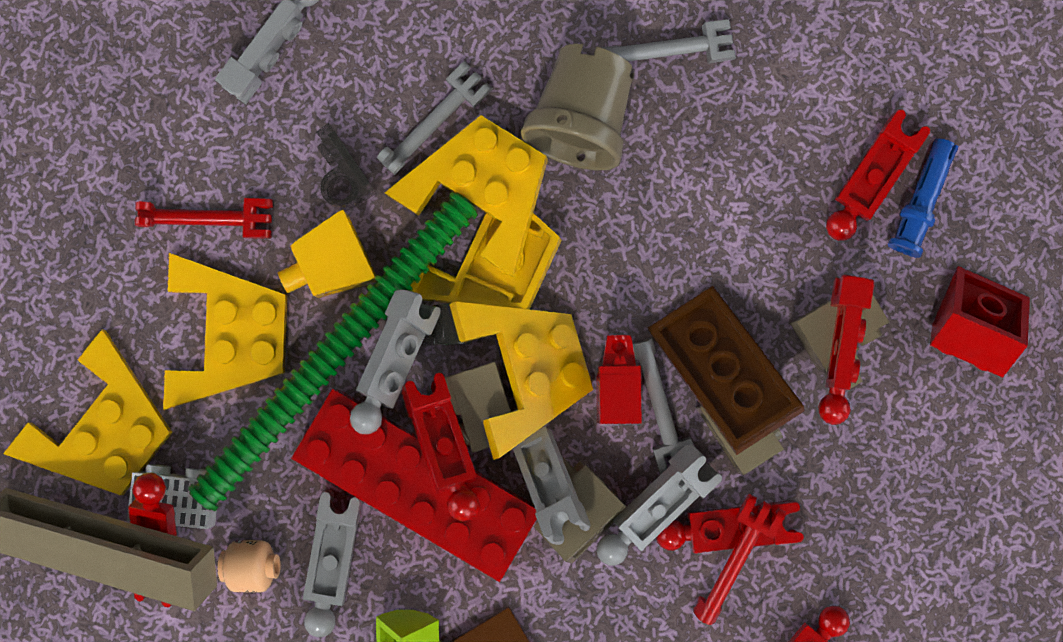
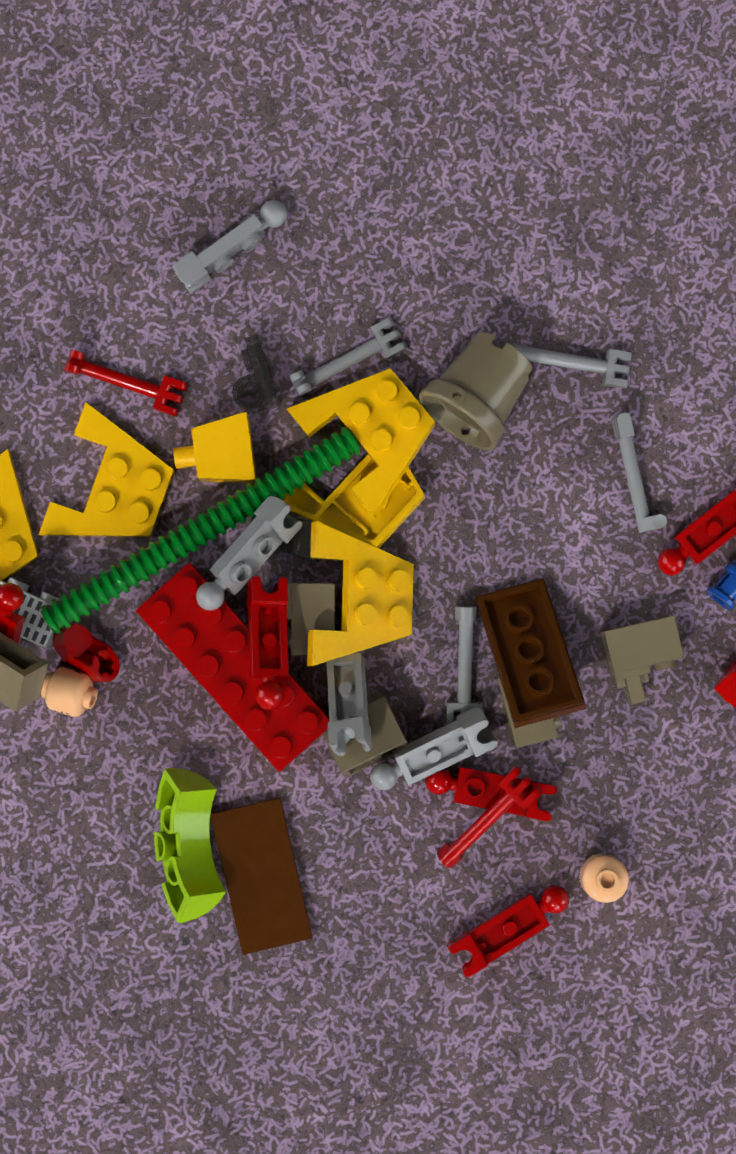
camera: 20 degrees right, 0 degrees up
(254, 519) = (86, 653): none -> red piece
(330, 562) = (139, 710): light grey plate -> none
(618, 383) = (434, 635): red hinge -> none
(748, 105) = (623, 433): none -> light grey hinge
(851, 297) = (656, 626): red plate -> none
(879, 582) = (604, 877): none -> light nougat head

